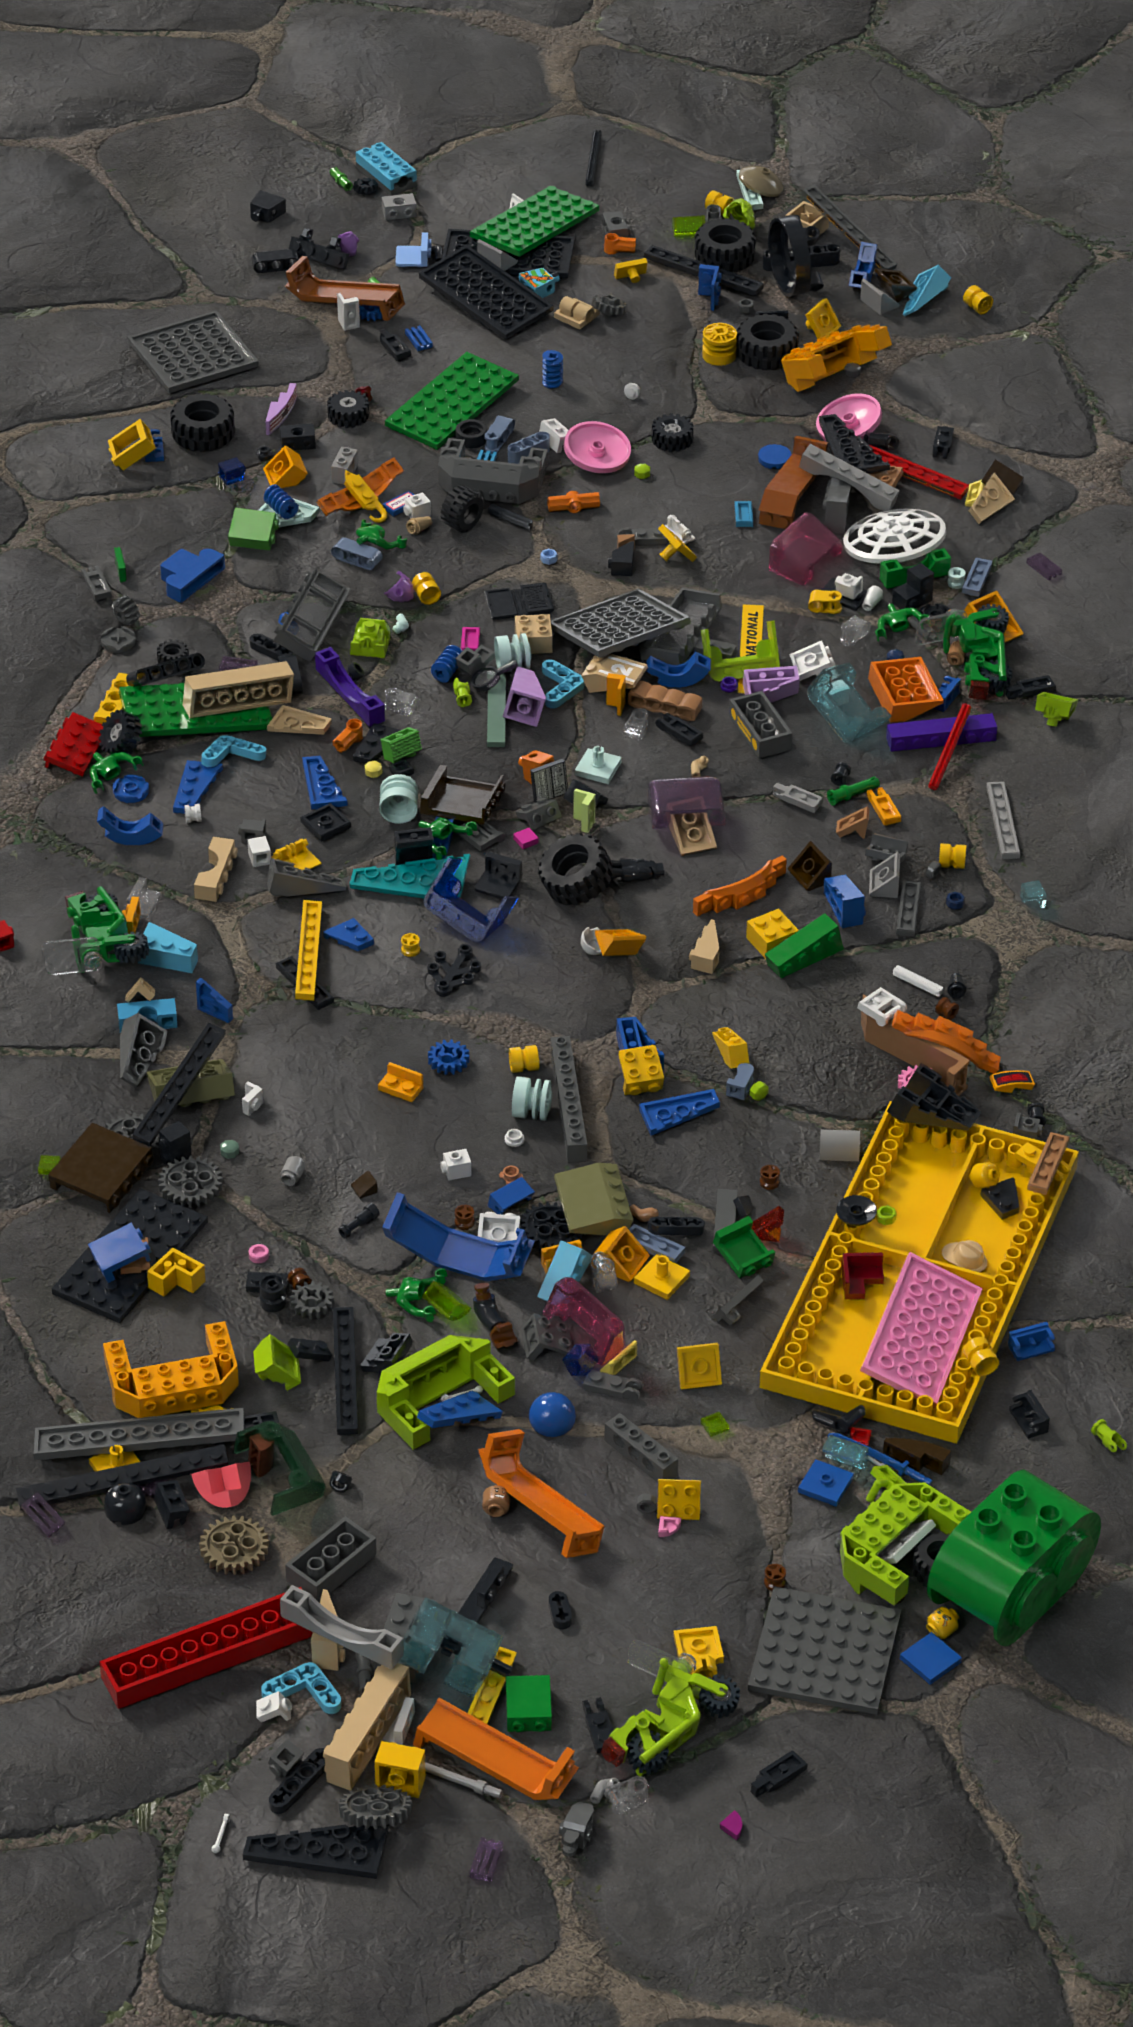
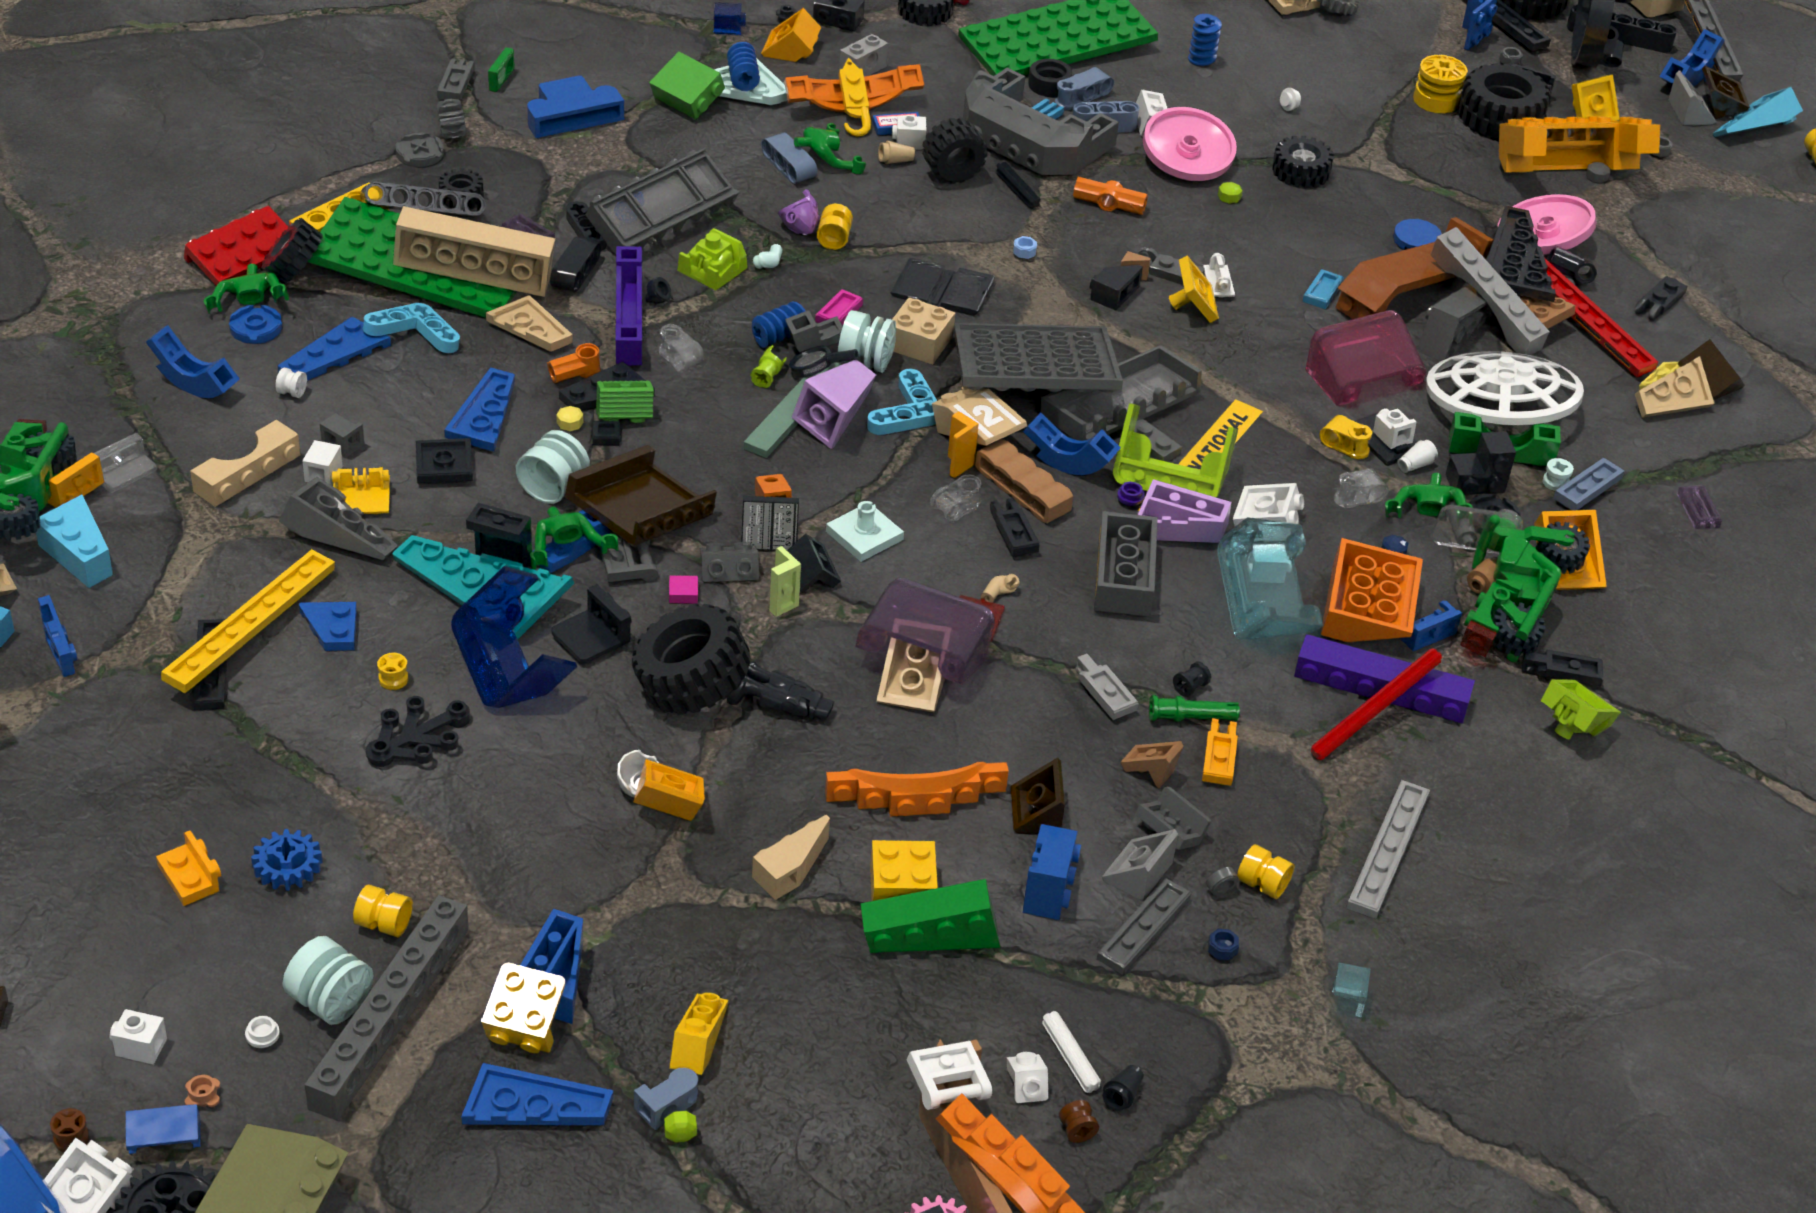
camera: 25 degrees right, 0 degrees up
(911, 999) = (1029, 1077): none -> white bracket

